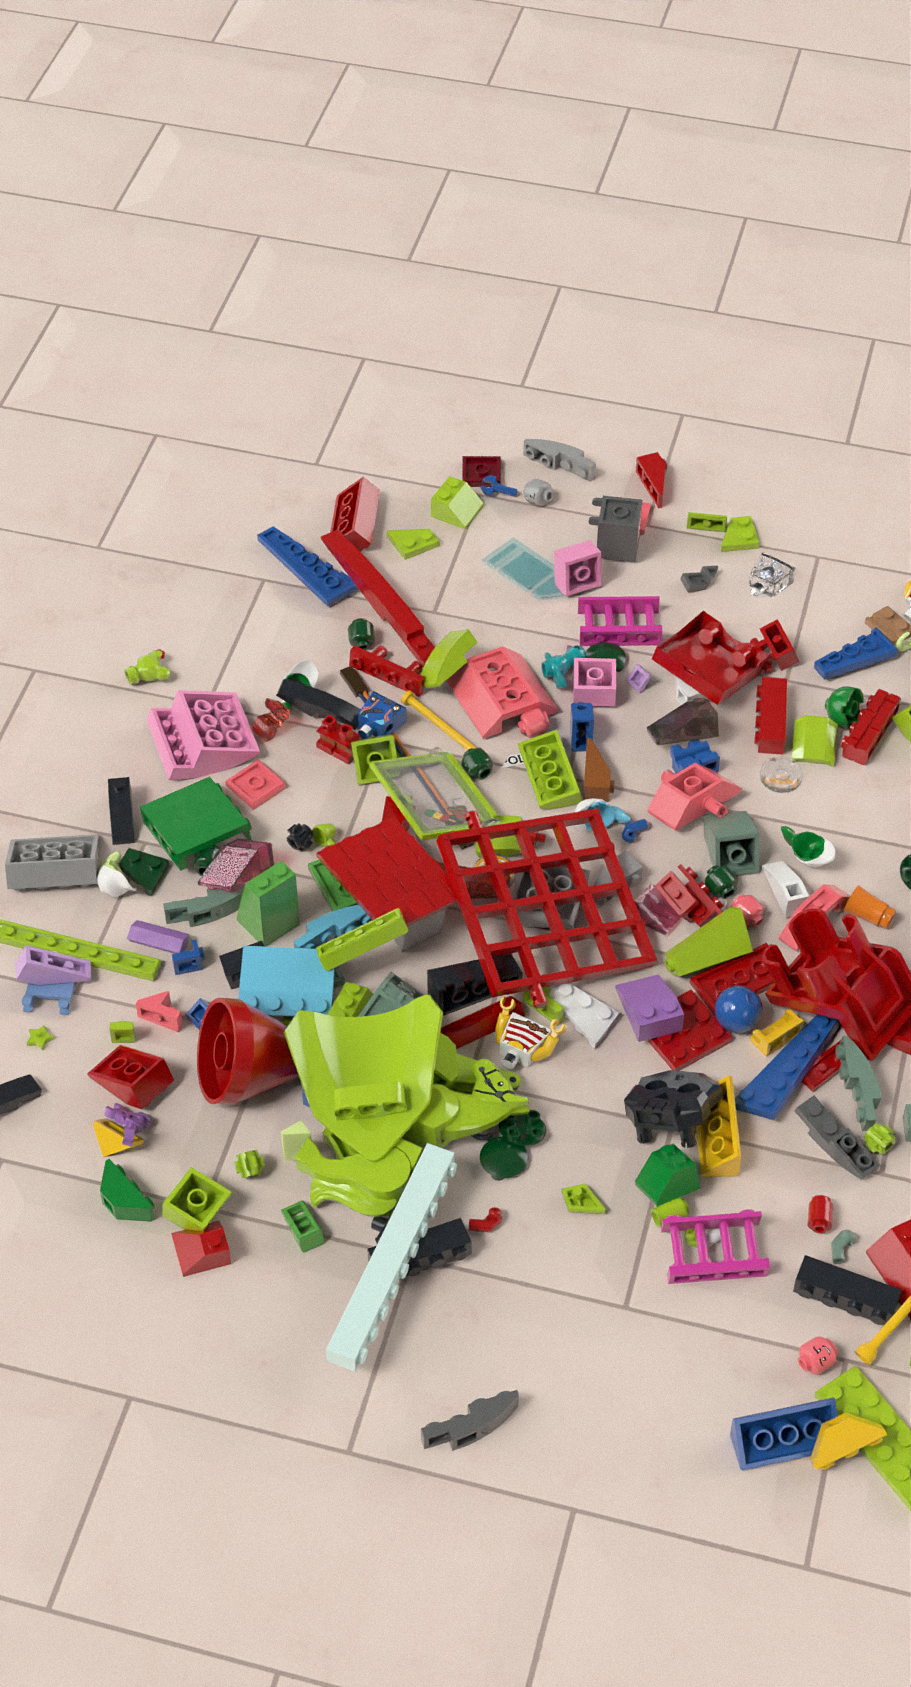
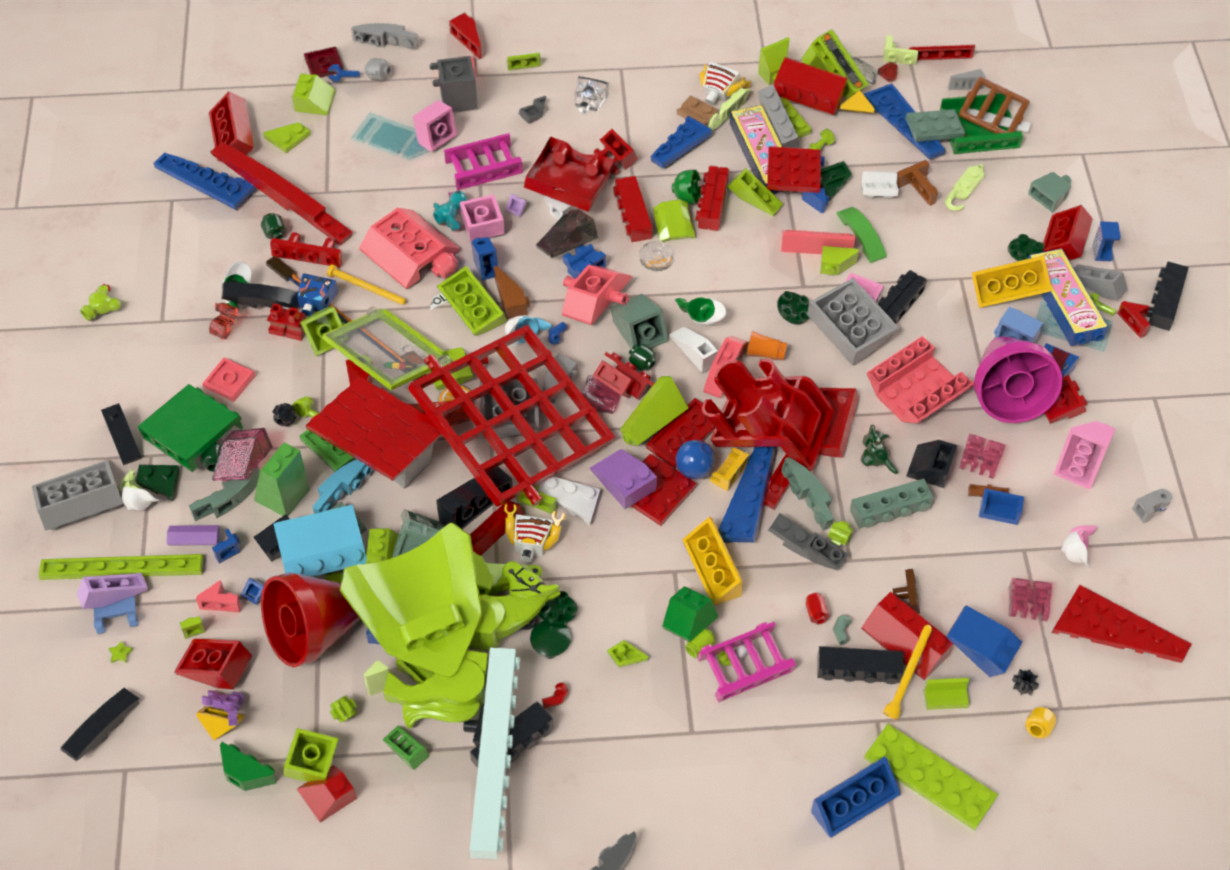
camera: 20 degrees left, 5 degrees up
(202, 734) = (167, 348): bright pink slope -> none
(362, 939) = (373, 490): lime slope -> none
(447, 657) = (355, 228): lime slope -> none
(477, 763) = (409, 311): dark green head -> none
(608, 651) = (482, 189): dark green dish -> none
(671, 1103) = (671, 553): black brick -> none
(740, 535) = (554, 65): lime wing -> none
(751, 909) = (675, 371): coral head -> none
(817, 1355) = (856, 725): coral head -> none
(843, 1438) = (902, 787): yellow slope -> none

